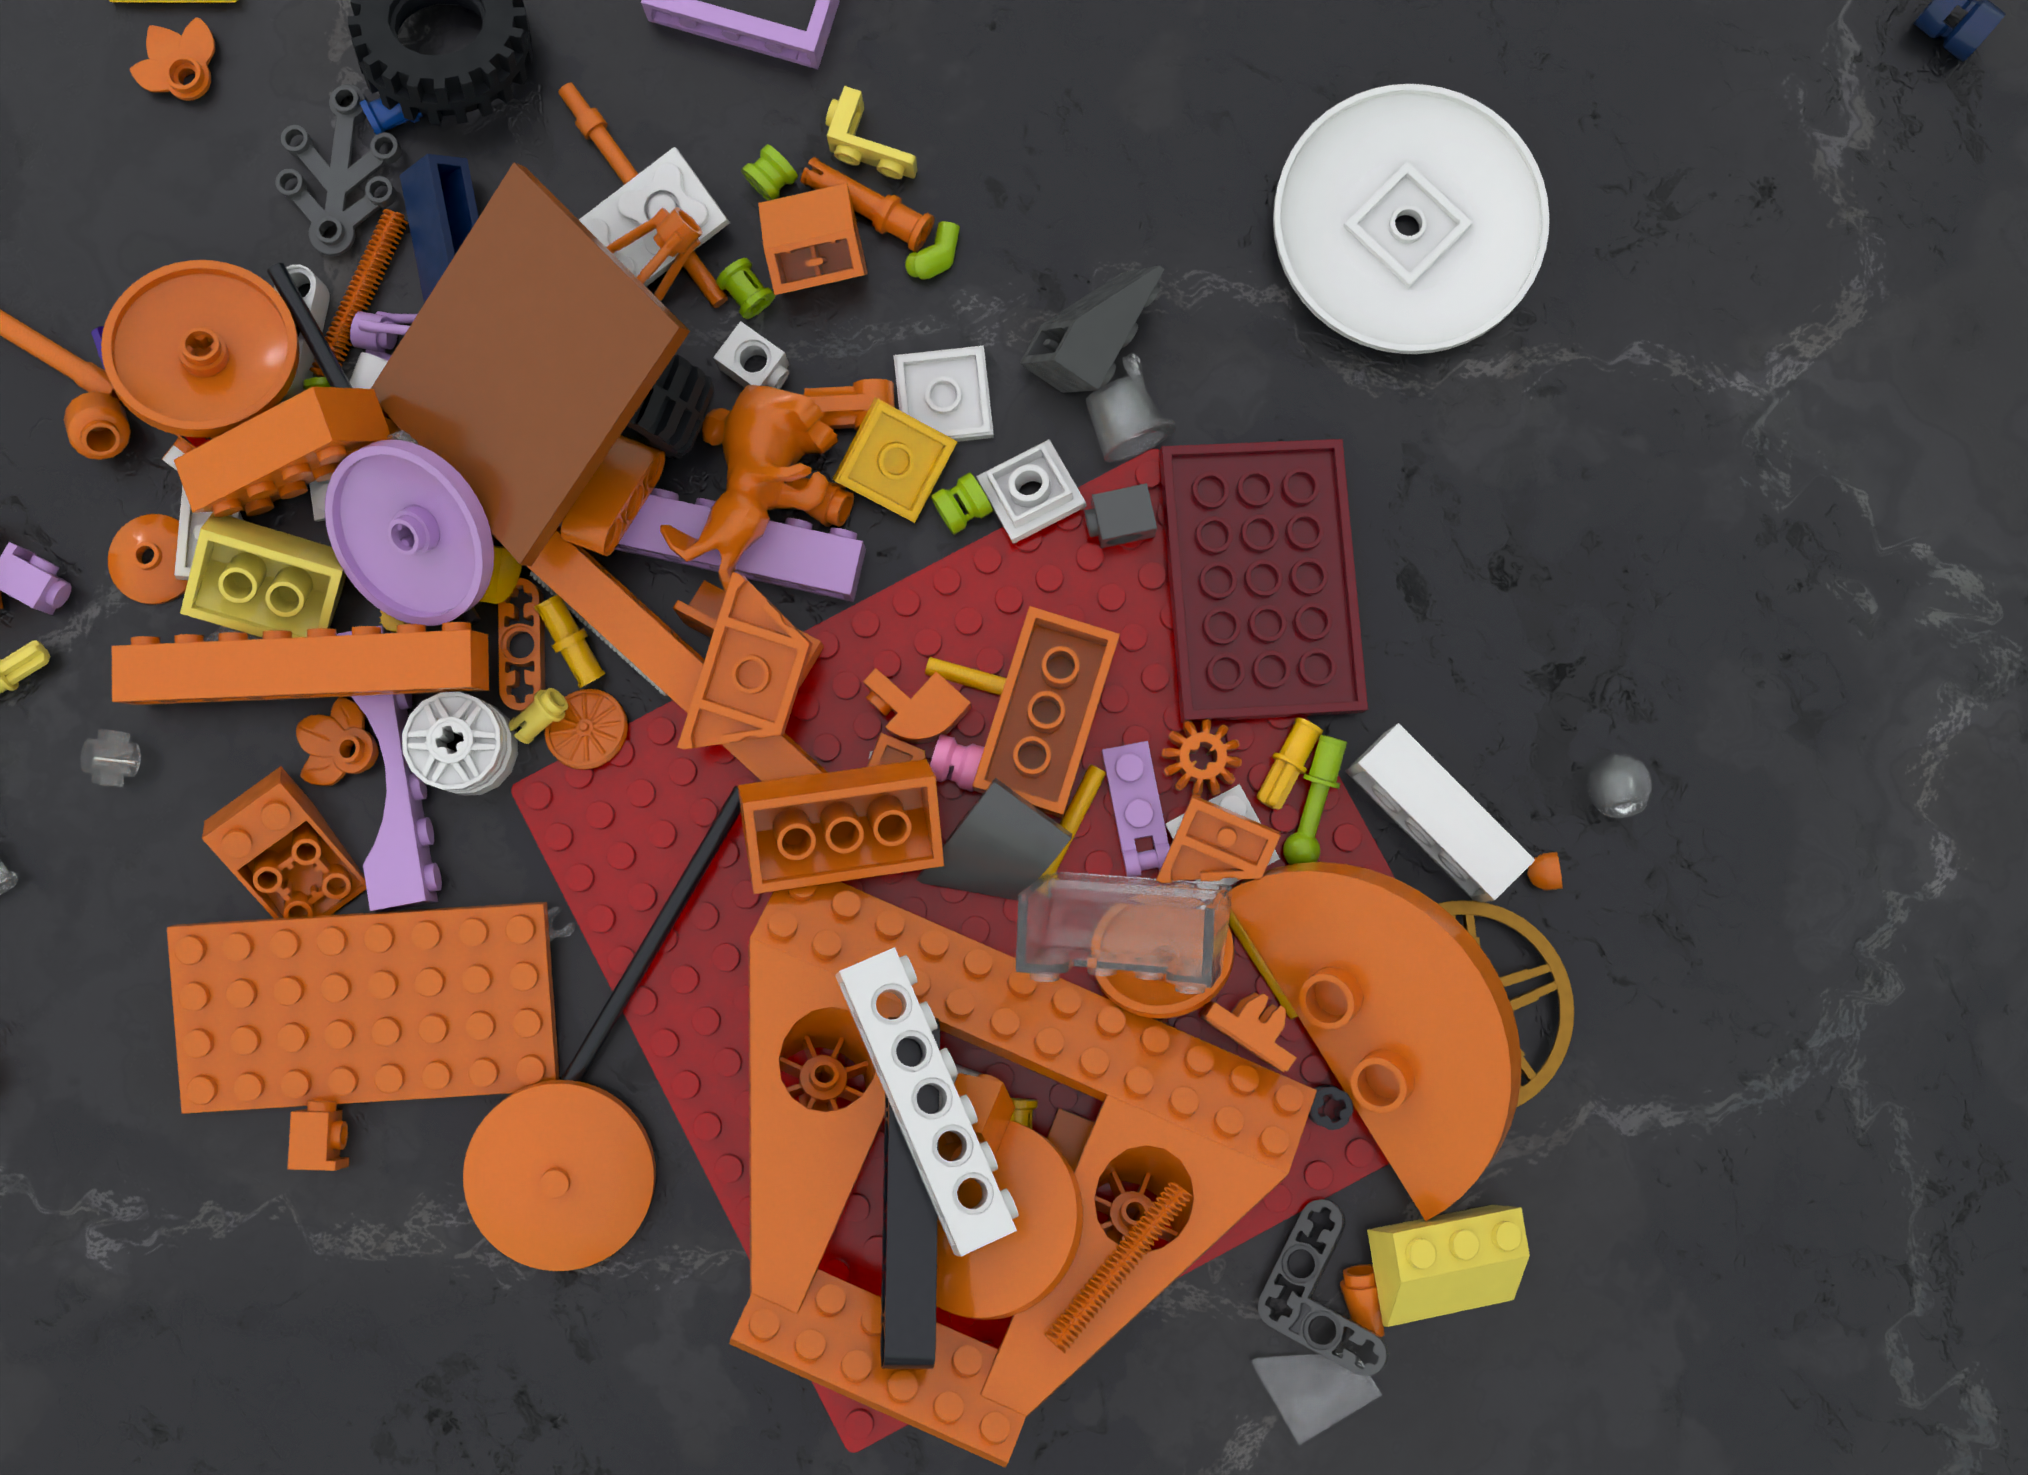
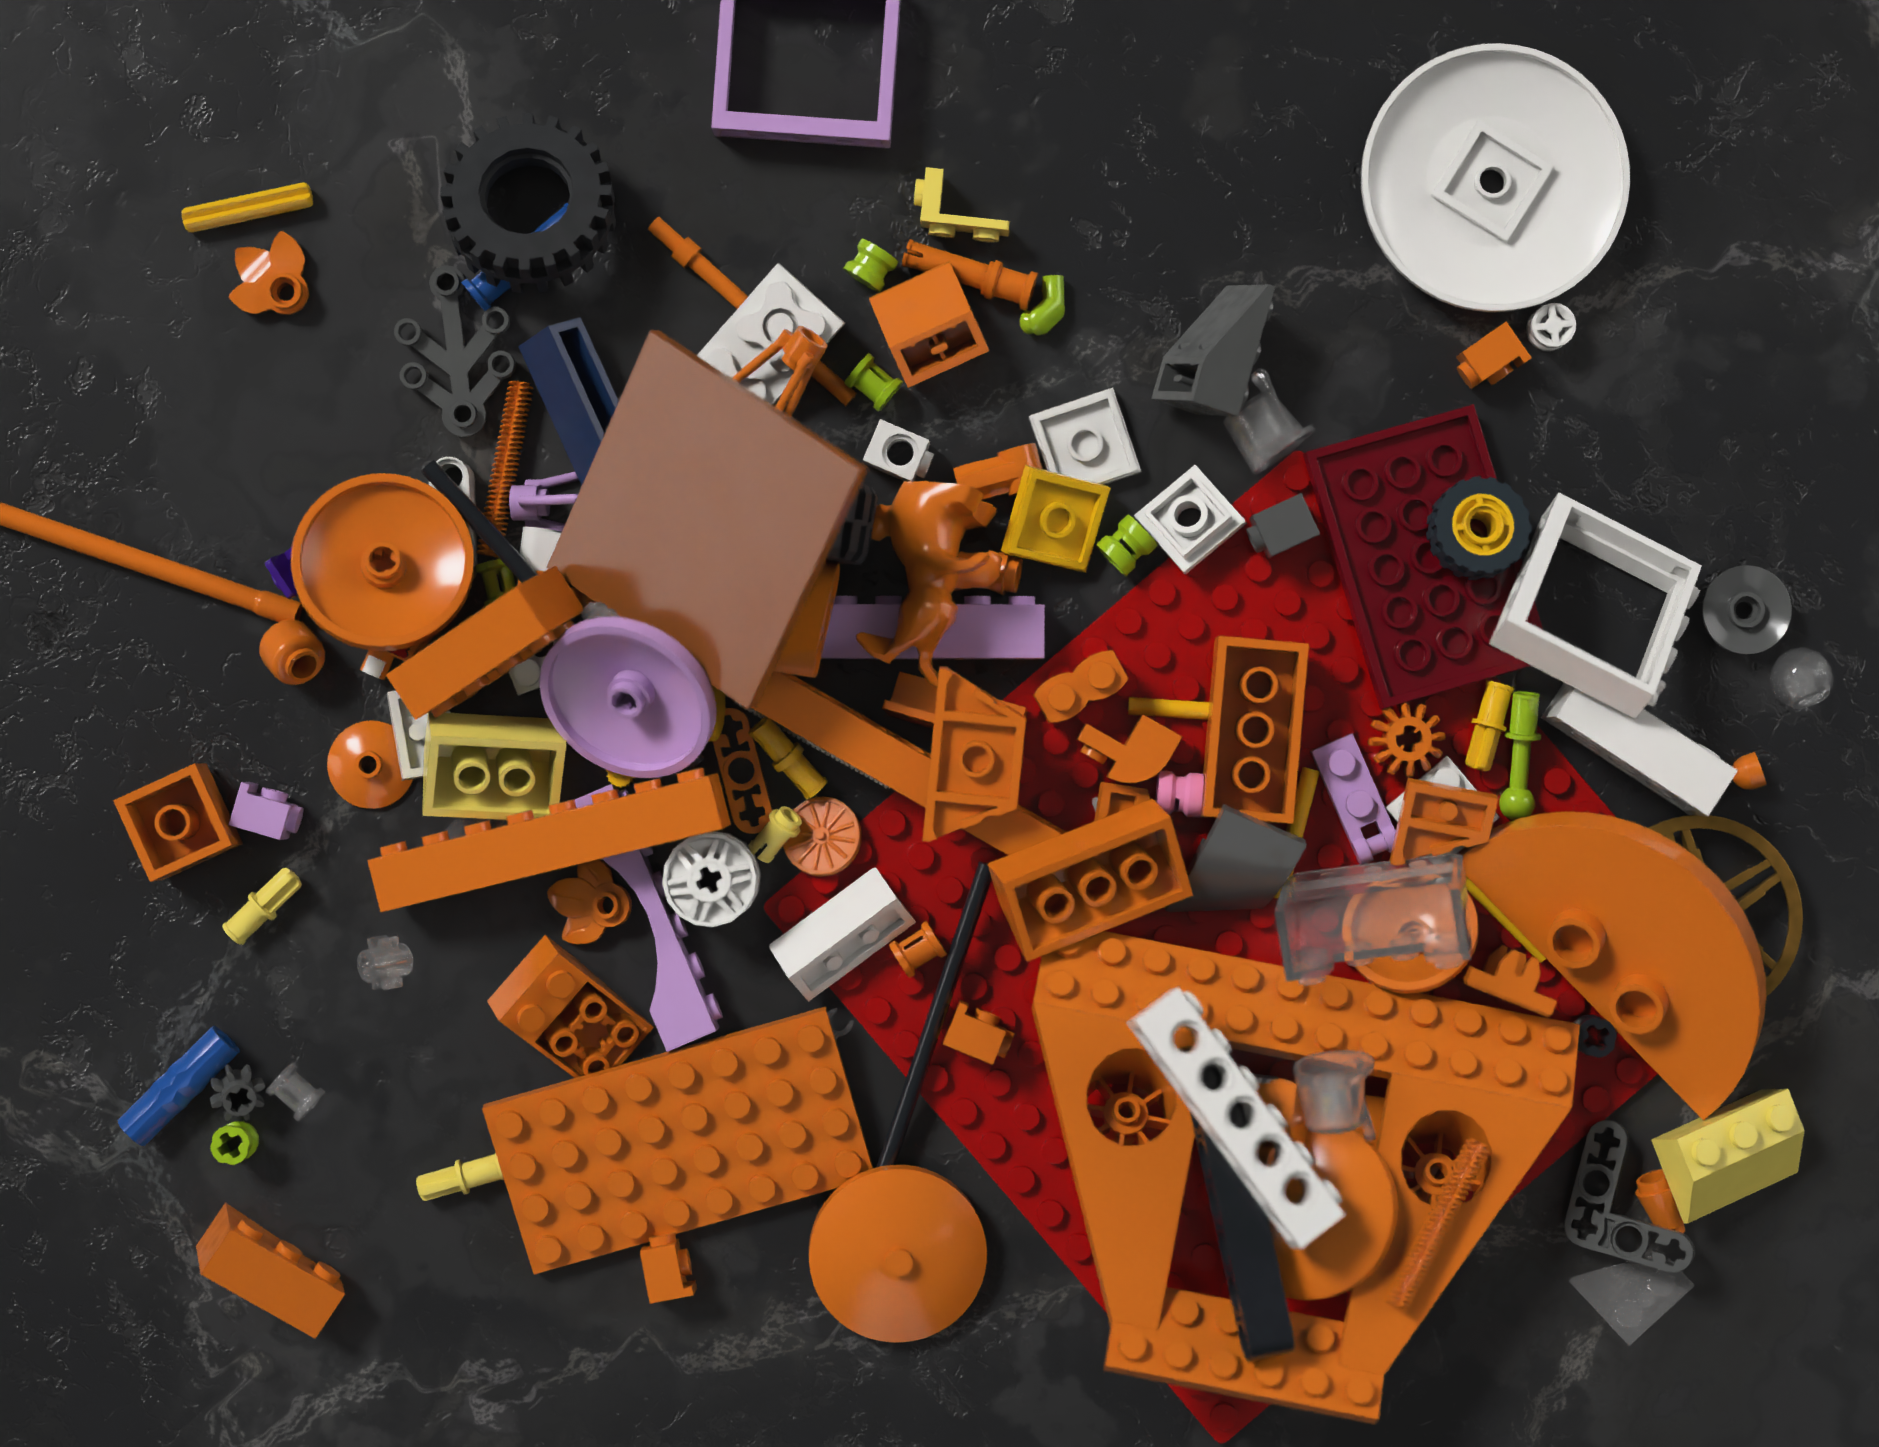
camera: 15 degrees left, 5 degrees up
(129, 996) = (459, 1177): none -> light yellow axle
(579, 832) = (841, 934): none -> white panel
(653, 863) = (917, 949): none -> orange bush
(692, 963) = (978, 1034): none -> orange brick
(867, 635) = (1090, 681): none -> orange brick
(1040, 1100) = (1334, 1091): none -> clear hat
(1339, 539) = (1500, 512): none -> black wheel
(1371, 395) = (1491, 357): none -> orange brick
(1439, 370) = (1560, 325): none -> white wheel
(1462, 616) = (1627, 551): none -> white window
(1599, 700) = (1768, 606): none -> dark grey dish

